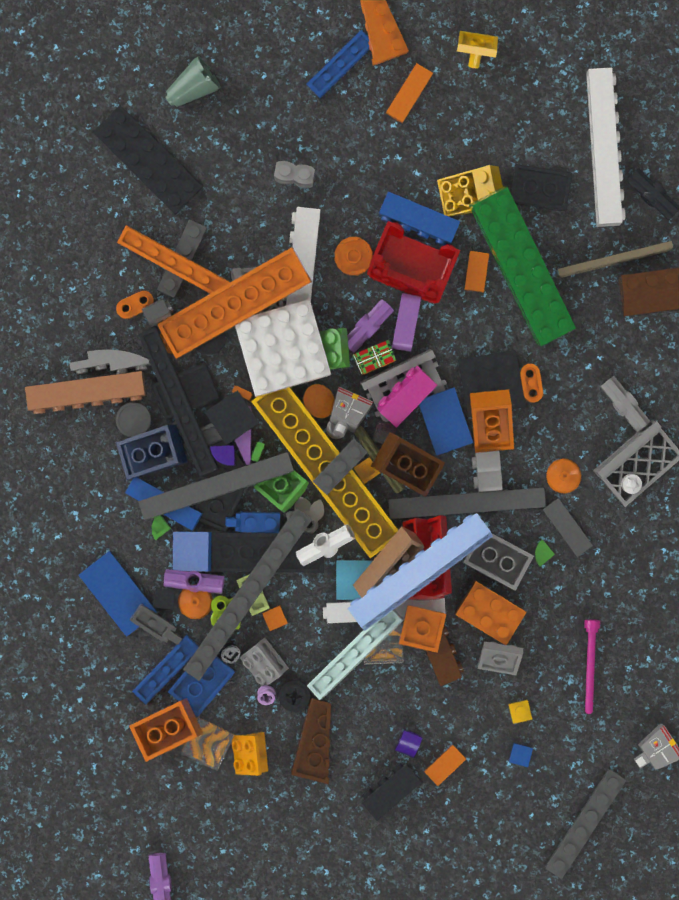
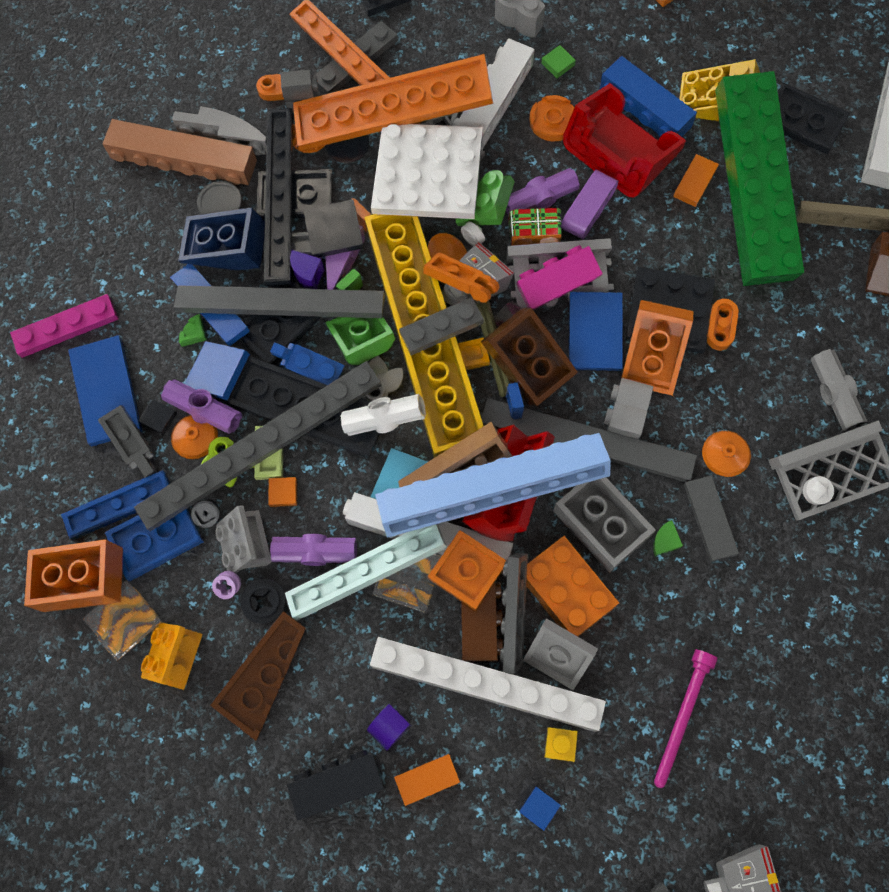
camera: 25 degrees right, 15 degrees down
(64, 557) = (64, 326): none -> dark pink plate
(313, 650) = (313, 549): none -> medium lavender piece
(332, 379) = (472, 233): none -> white tile
(339, 205) = (558, 61): none -> bright green tile
(340, 426) = (461, 277): none -> orange hinge
(409, 498) = (514, 401): none -> blue tile
(461, 693) = (488, 684): none -> white brick
(463, 649) = (514, 621): none -> dark grey plate

